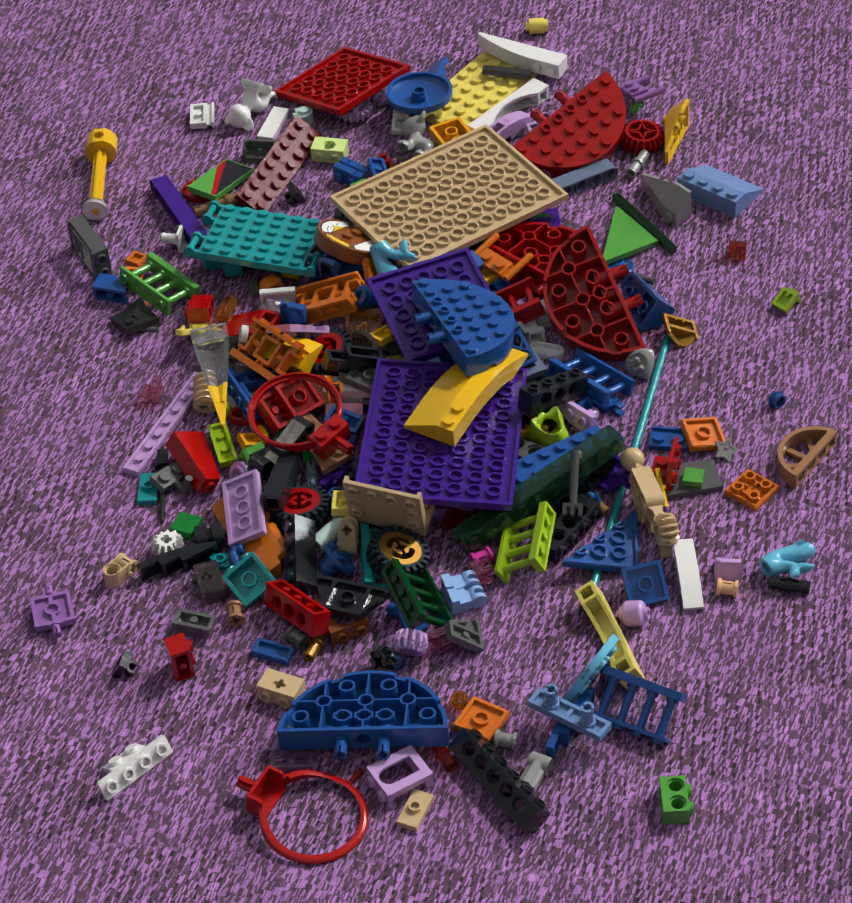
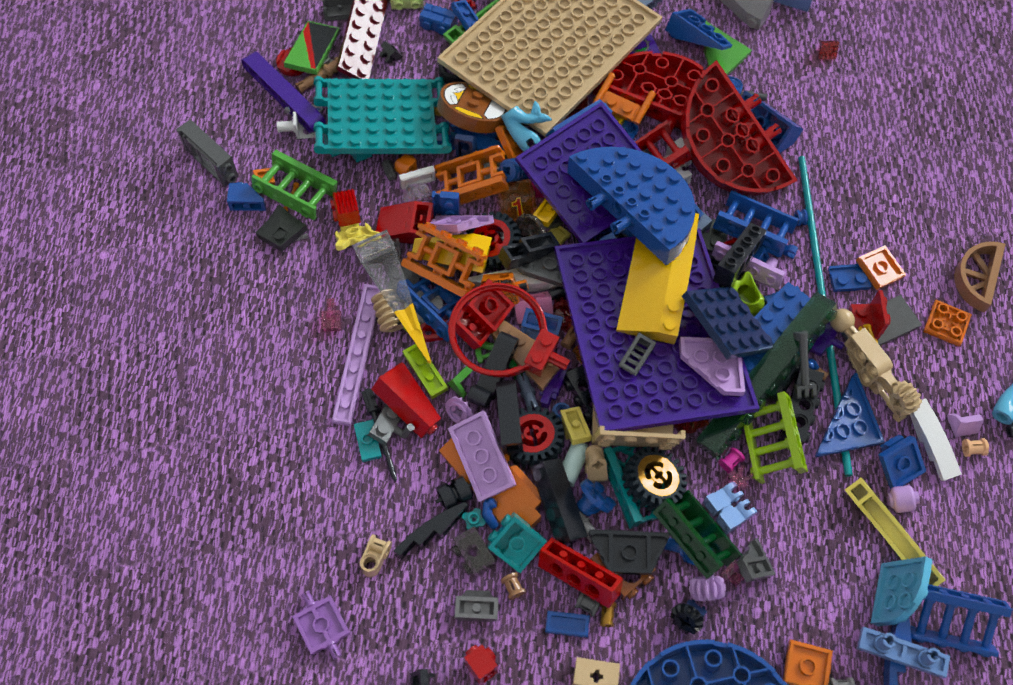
camera: 20 degrees left, 20 degrees up
(99, 150) = (181, 31): yellow piece -> none
(136, 259) = (258, 155): orange tile -> none
(166, 542) = (405, 512): white gear -> none
(185, 524) = (424, 482): green piece -> none
(226, 308) = (371, 201): clear orange plate -> none
(243, 334) = (408, 240): white tile -> none
(250, 439) = (451, 362): light orange bracket -> none
(415, 437) = (643, 340): none -> dark grey slope
(459, 696) = (781, 650): clear orange plate -> none
(485, 462) = (711, 364): none -> lavender plate
(509, 432) = (728, 322): none -> dark blue plate
(547, 350) = (702, 194): white tile -> none
(602, 211) = (691, 27): none -> blue wedge
(629, 209) = (731, 31): dark green axle -> none
(640, 363) = (793, 196): light grey piece -> none
(641, 382) = (802, 216): none -> blue bush
(680, 330) = (813, 149): pearl gold slope -> none
(693, 477) = (897, 322): bright green tile -> none
(727, 455) = (903, 282): light grey plate -> none
(777, 399) = (929, 214): blue plate -> none
(786, 299) = (893, 98): lime bracket -> none

